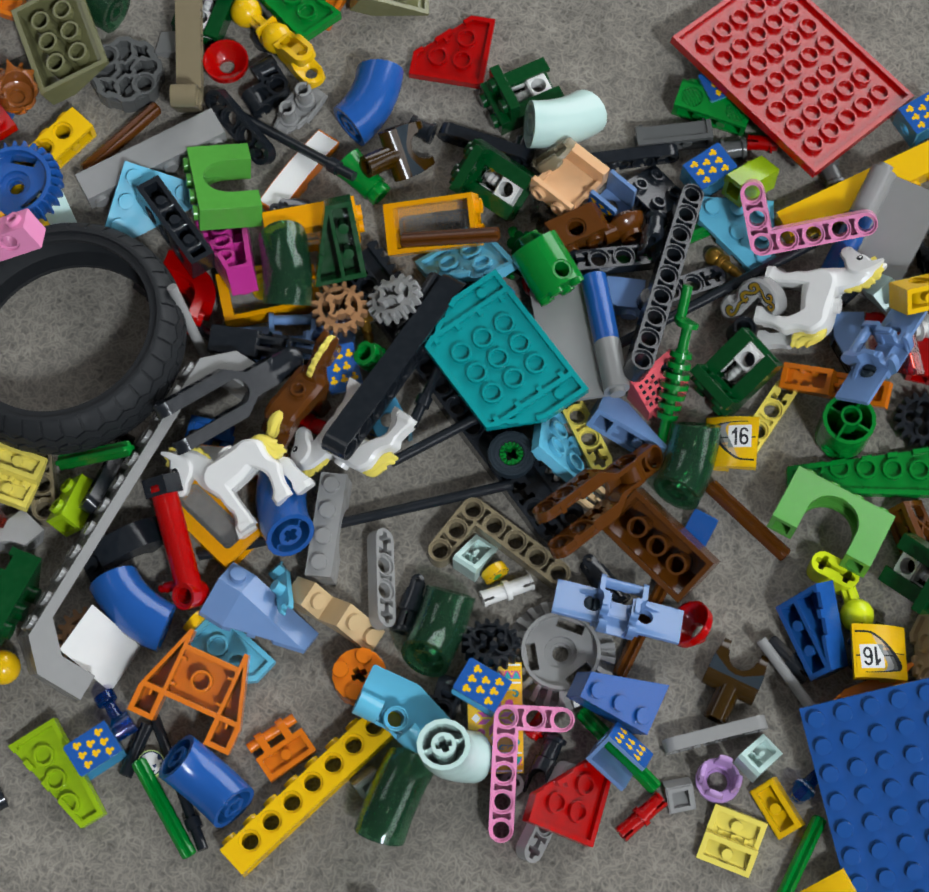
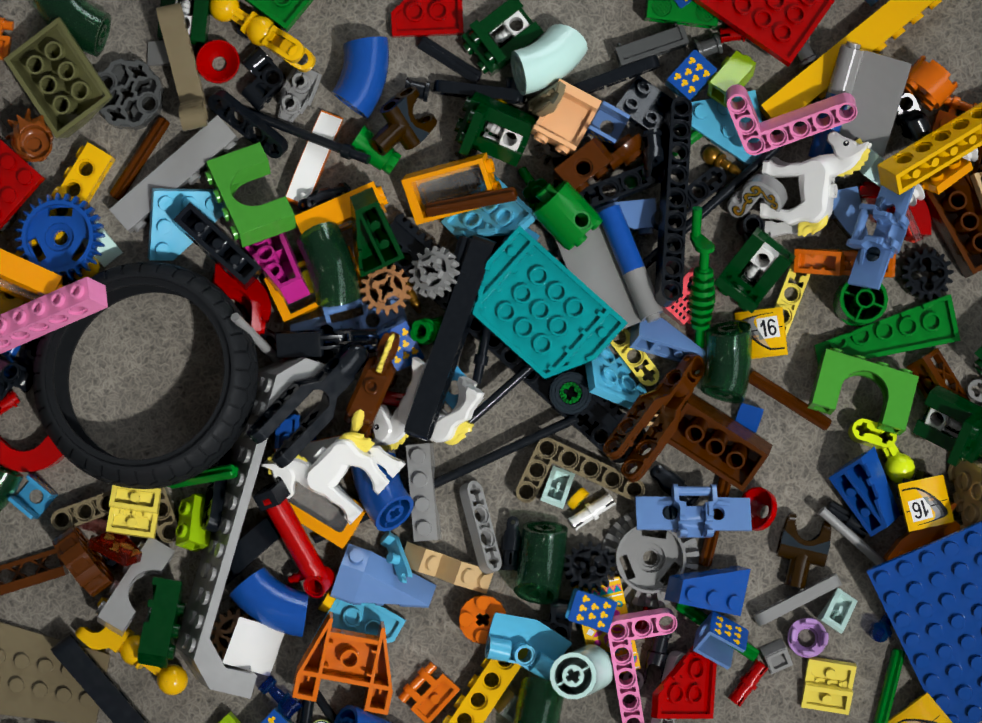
camera: 15 degrees left, 15 degrees up
(461, 108) = (449, 60): none -> black axle
(777, 808) = (862, 649): yellow slope -> none

